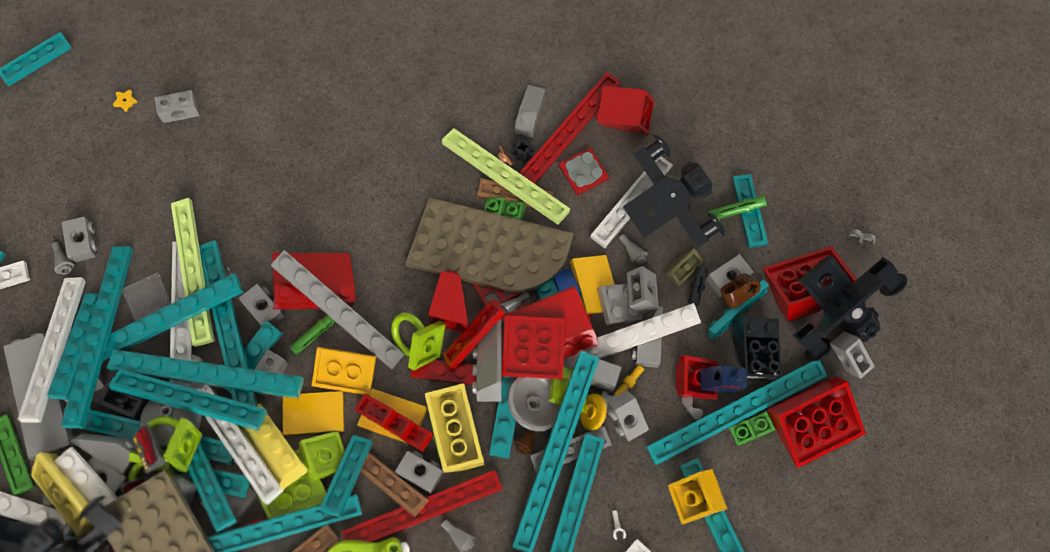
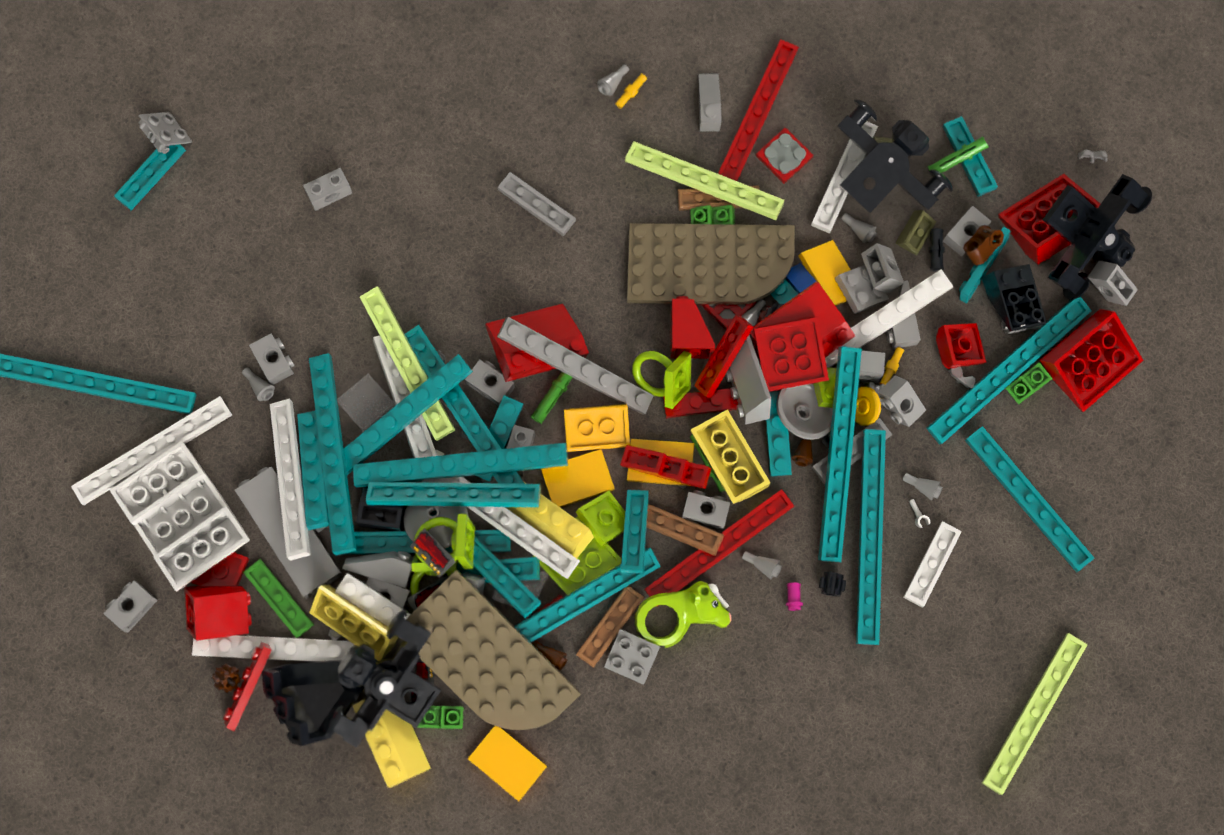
camera: 15 degrees left, 5 degrees up
(57, 26) = (163, 130): none -> light grey hinge
(124, 104) = (268, 201): yellow plate -> none
(353, 161) = (536, 204): none -> light grey plate
(447, 75) = (609, 83): none -> light grey cone
(465, 85) = (631, 91): none -> yellow bar
(504, 157) = (697, 160): nougat plate -> none
(527, 150) = (712, 153): black gear -> none
(625, 109) = (812, 77): red slope -> none
(633, 503) = (929, 488): none -> light grey cone
(697, 496) = (992, 464): yellow slope -> none
(730, 379) = (998, 339): dark blue torso -> none

